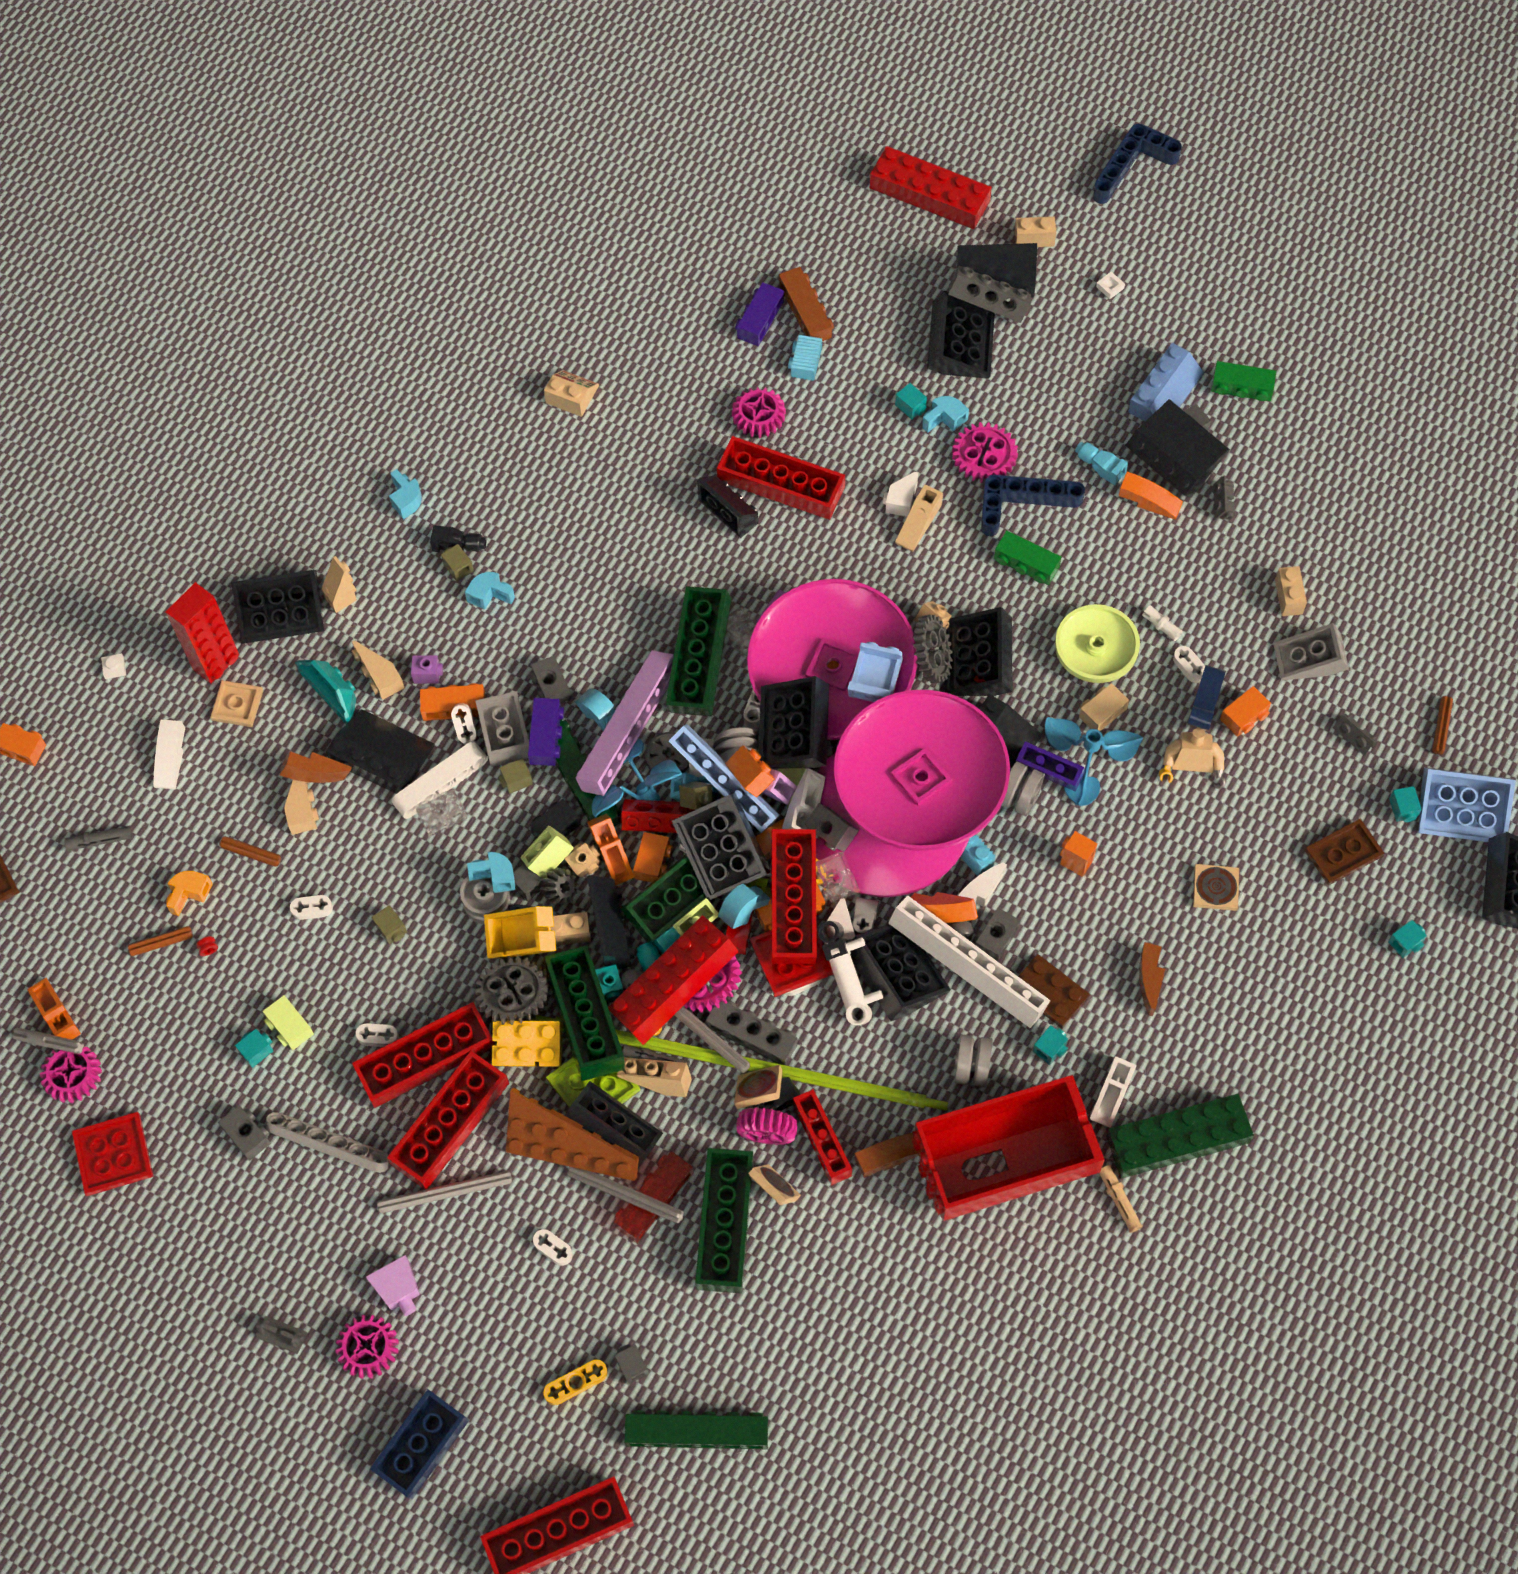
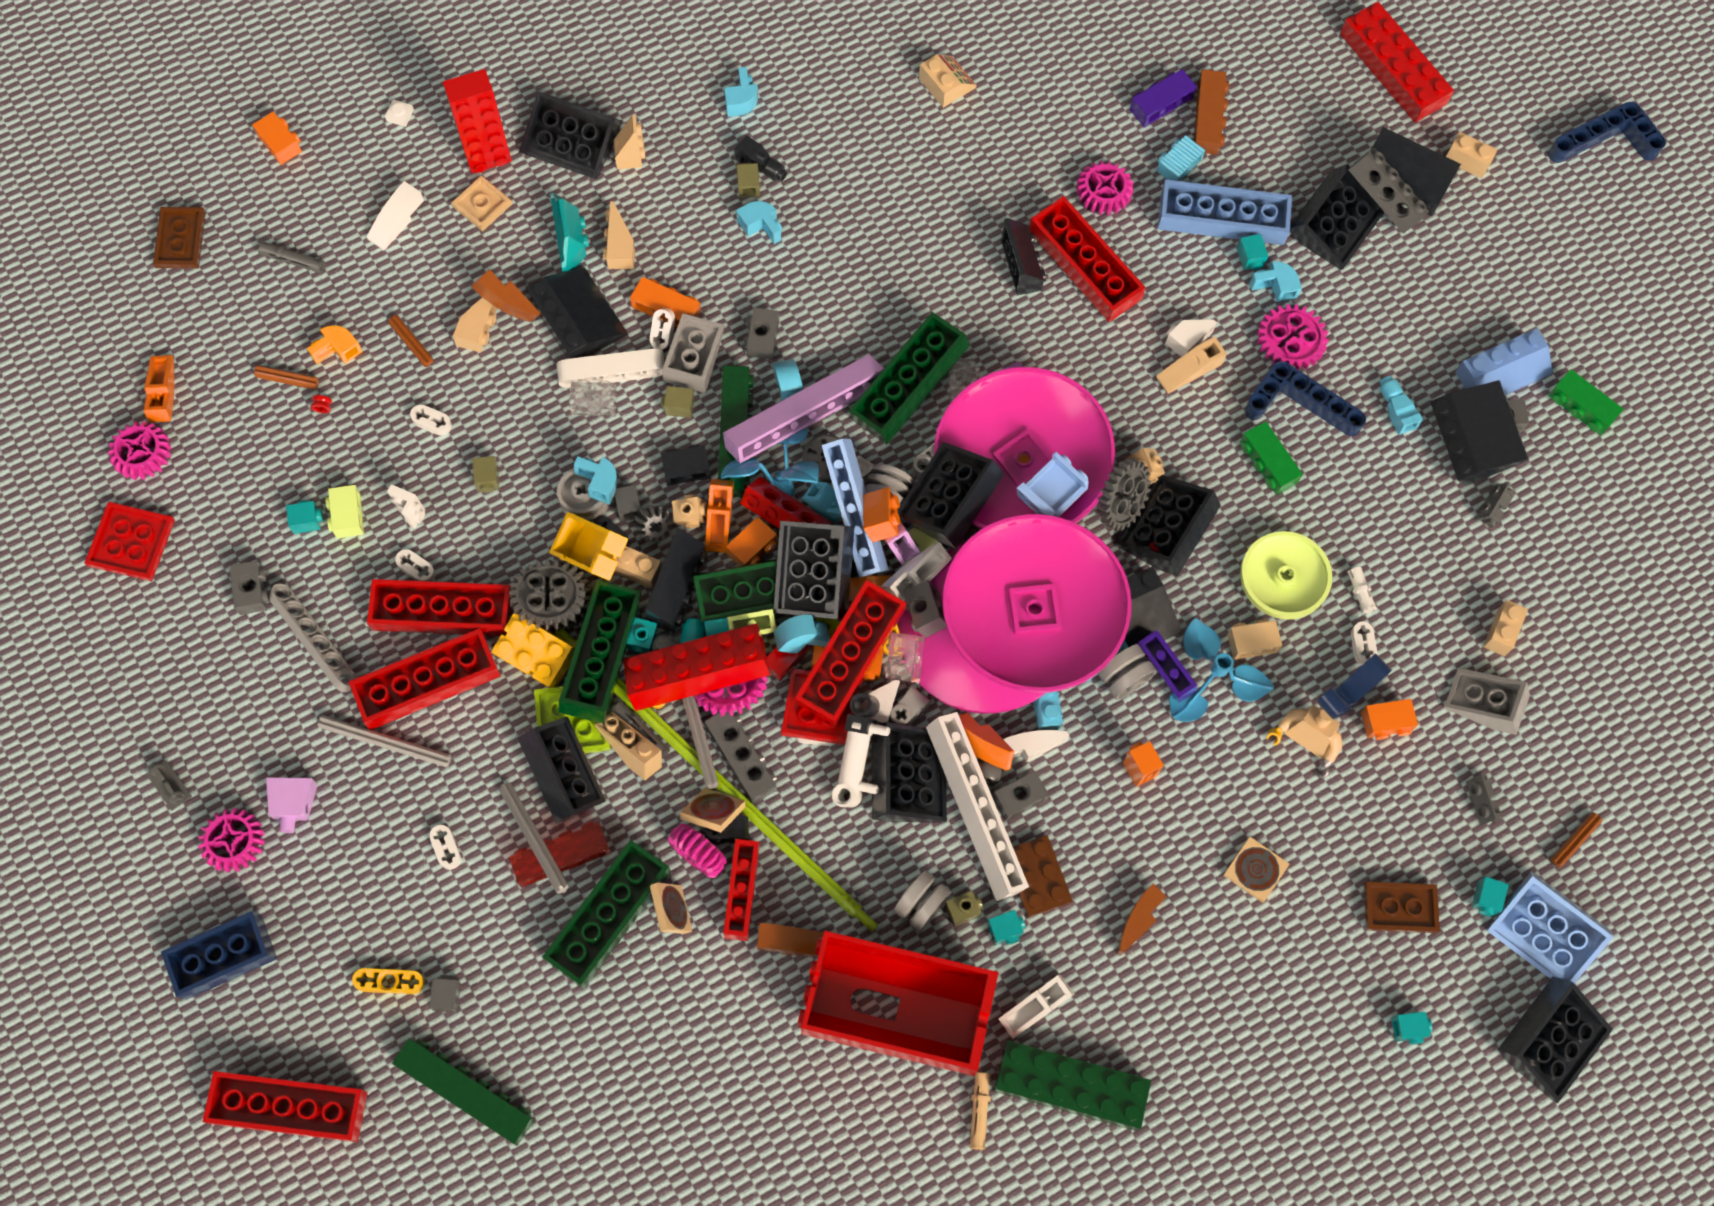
camera: 25 degrees right, 5 degrees up
(47, 1040) = (135, 411): light grey axle -> none
(338, 985) = (407, 504): none -> white bracket
(426, 669) = (660, 262): medium lavender brick -> none
(545, 731) = (725, 375): dark purple brick -> none
(547, 852) = (659, 486): yellowish green brick -> none
(560, 1140) = (508, 756): dark orange wing -> none
(695, 794) = (822, 509): olive brick -> none
(868, 380) = (1224, 211): none -> medium blue brick
(1008, 1049) = (963, 908): none -> olive brick
(1110, 285) = (1512, 243): white plate -> none
(1150, 496) = (1425, 463): orange slope -> none

